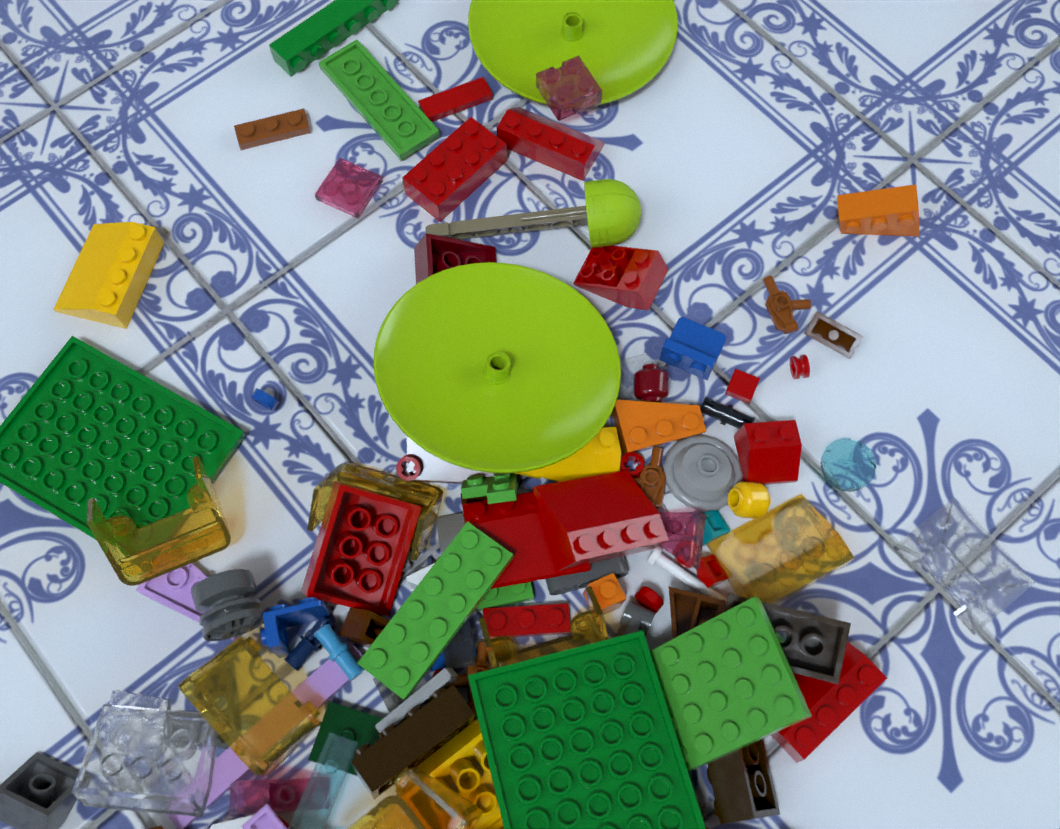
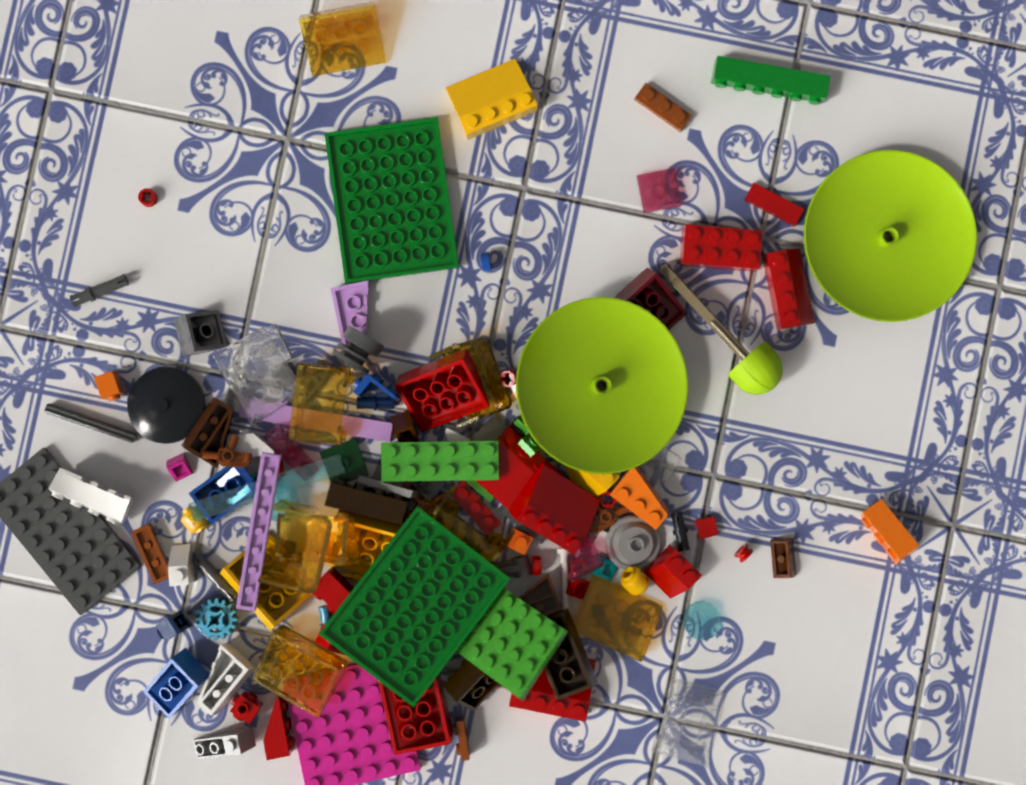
camera: 50 degrees right, 20 degrees up
(167, 543) = (365, 282): clear yellow windscreen -> none
(339, 652) = (381, 424): dark azure pin -> none
(379, 99) = (735, 156): bright green plate -> none
(568, 88) = (830, 277): clear pink piece -> none
(623, 275) = (725, 406): red slope -> none
(651, 384) = (661, 478): dark red head -> none
(693, 348) = (708, 482): blue bracket -> none
(781, 307) = (777, 514): dark orange piece -> none

